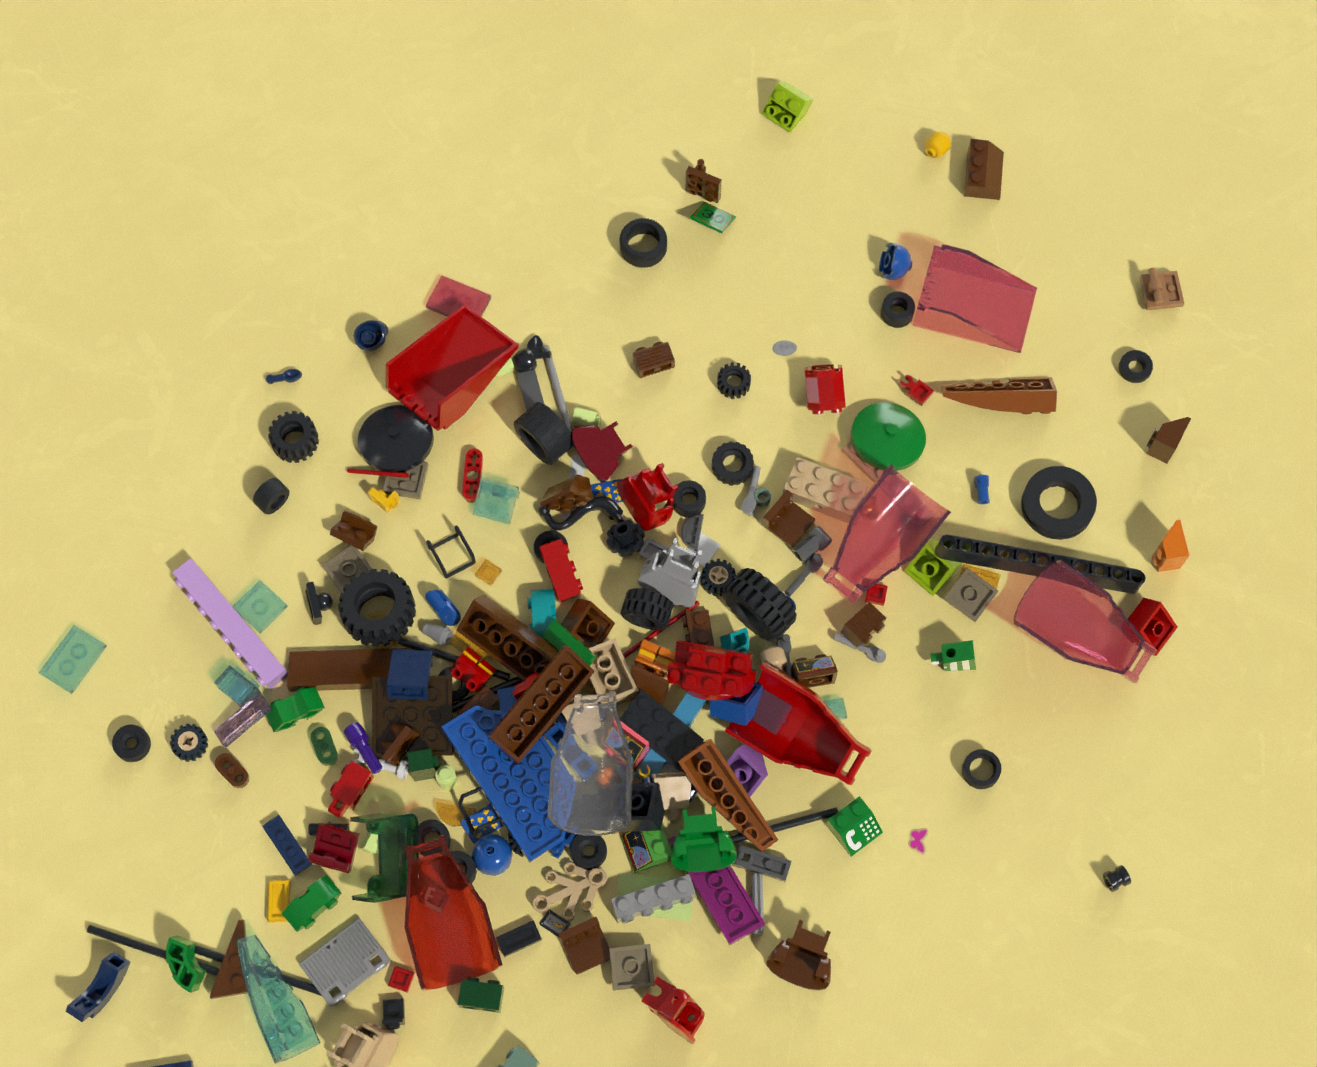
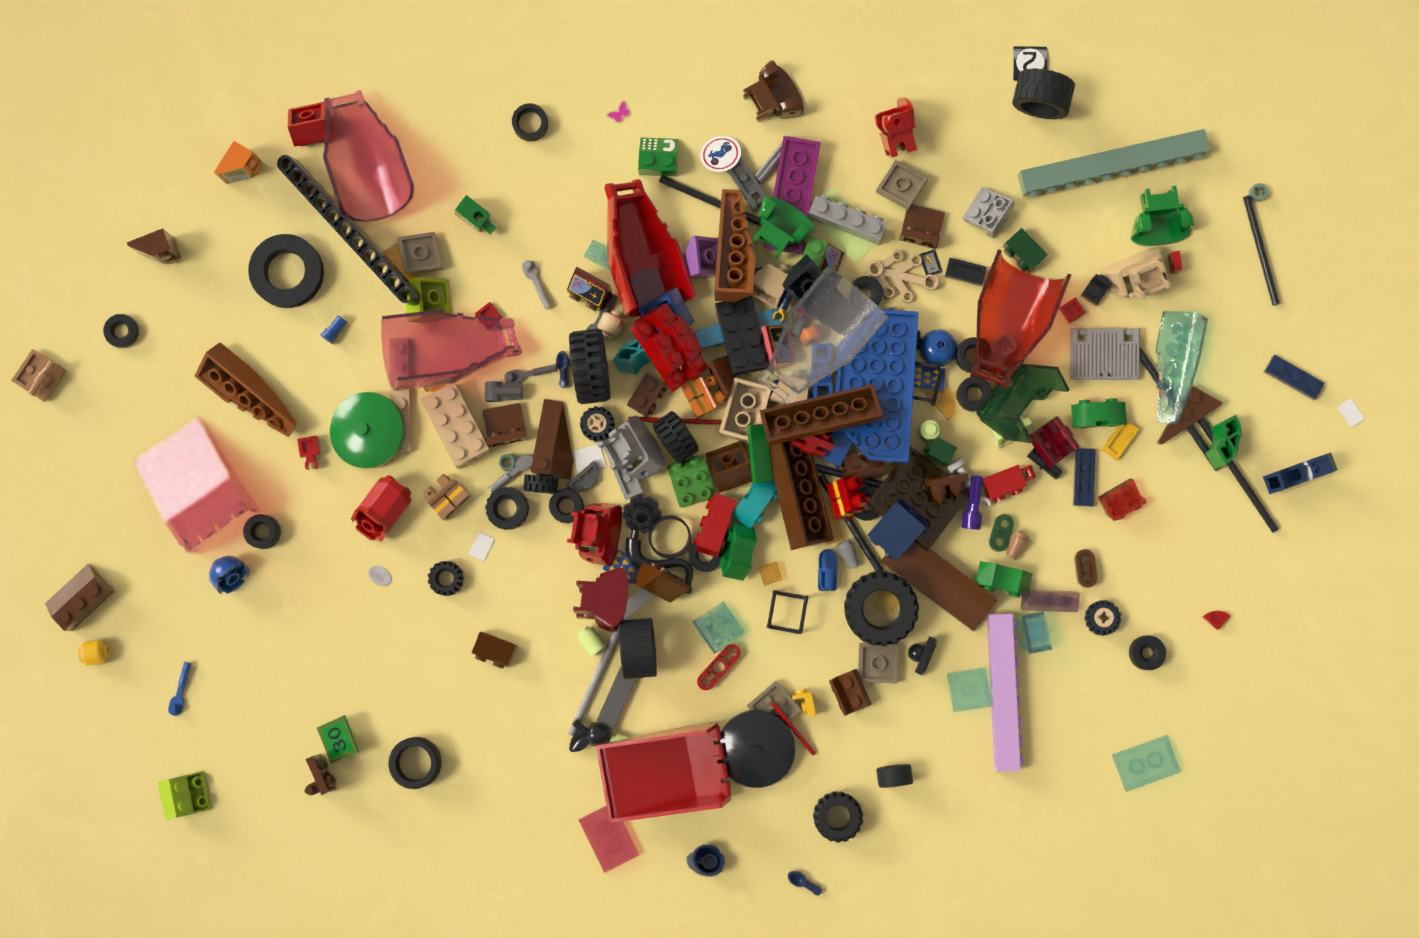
camera: 140 degrees left, 15 degrees up
(91, 816) = (1216, 618): none -> red tile
(240, 848) = (1121, 500): none -> clear red bracket
(304, 746) = (1016, 545): none -> medium nougat cone
(526, 565) = (738, 552): none -> green brick
(538, 1005) = (988, 211): none -> light grey plate
(578, 524) = (669, 556): none -> black tyre
(607, 591) = (691, 481): none -> bright green bracket
(721, 496) = (540, 484): none -> black tyre
(728, 424) = (481, 546): none -> white sticker
(736, 532) = (552, 447): none -> reddish brown wedge
(782, 436) = (452, 490): none -> medium nougat hips
(805, 871) = (720, 153): none -> white sticker
(849, 159) = (176, 703): none -> blue piece
(863, 625) = (520, 295): reddish brown brick -> none

